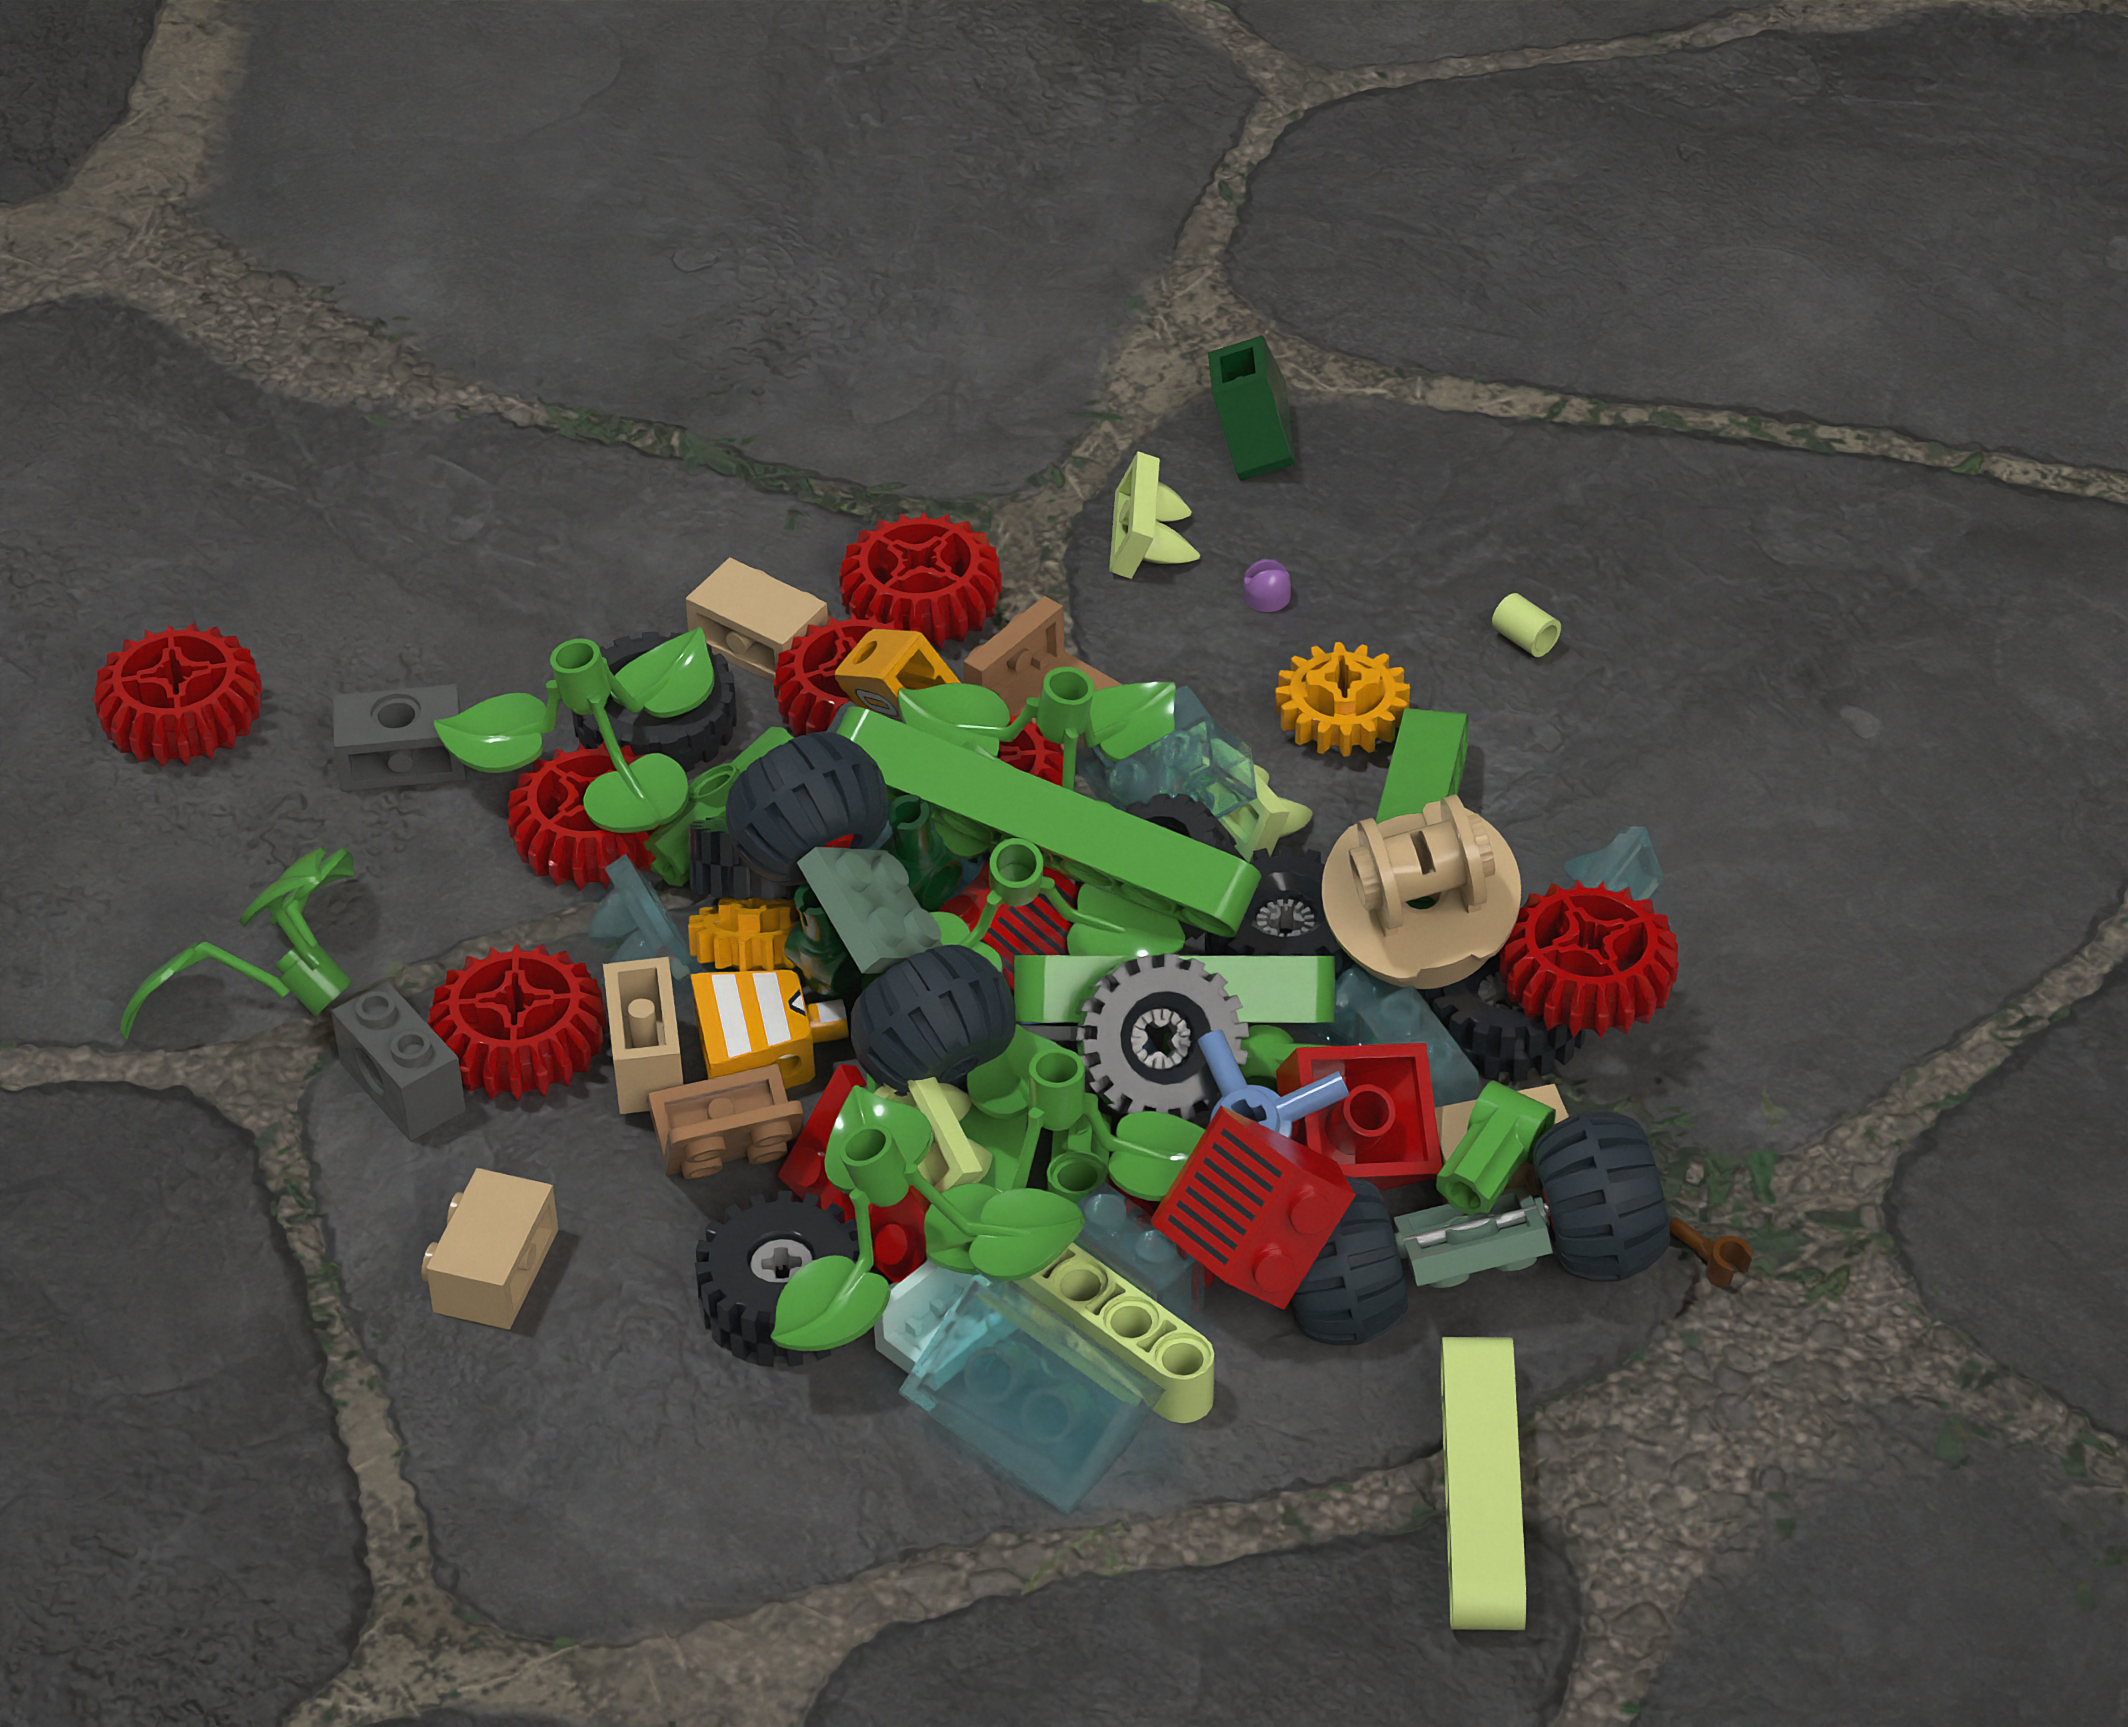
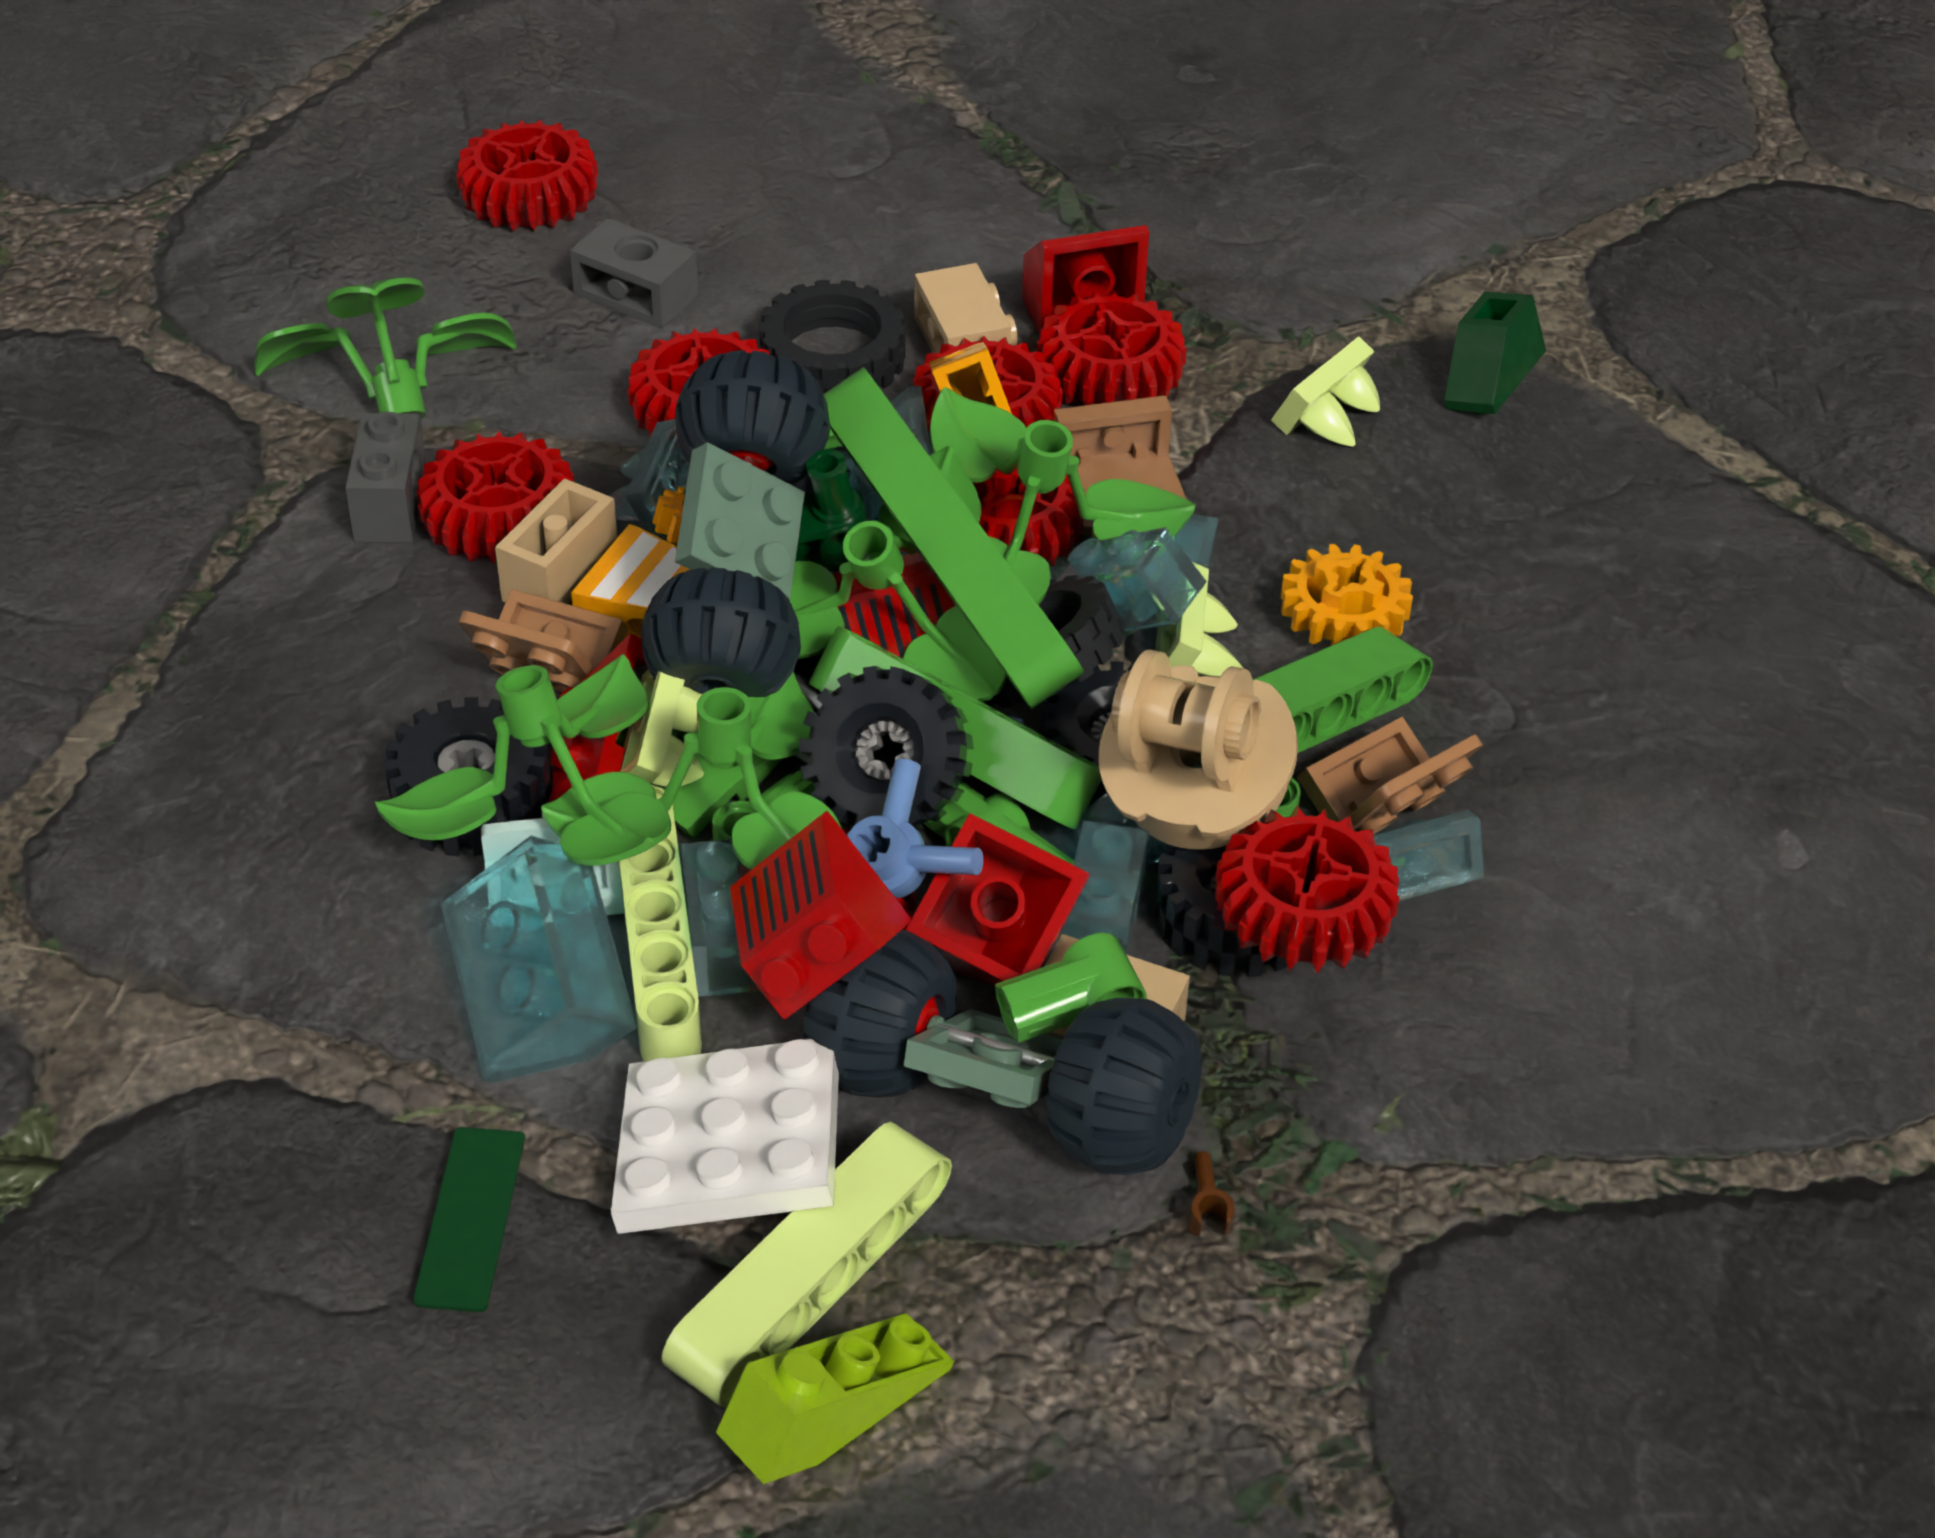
camera: 35 degrees right, 0 degrees up
(491, 1248) = (303, 638): tan brick -> none
(664, 681) = (738, 278): bright green plant -> none
(813, 531) = (1083, 265): none -> red slope
(1182, 1622) = (470, 1220): none -> dark green piece
(1266, 586) = (1381, 490): medium lavender hinge -> none
(1327, 1426) = (727, 1136): none -> white plate
(1526, 625) = (1562, 622): yellowish green hinge -> none
(1547, 836) = (1384, 776): none -> medium nougat bracket
(1599, 1566) = (824, 1394): none -> lime slope

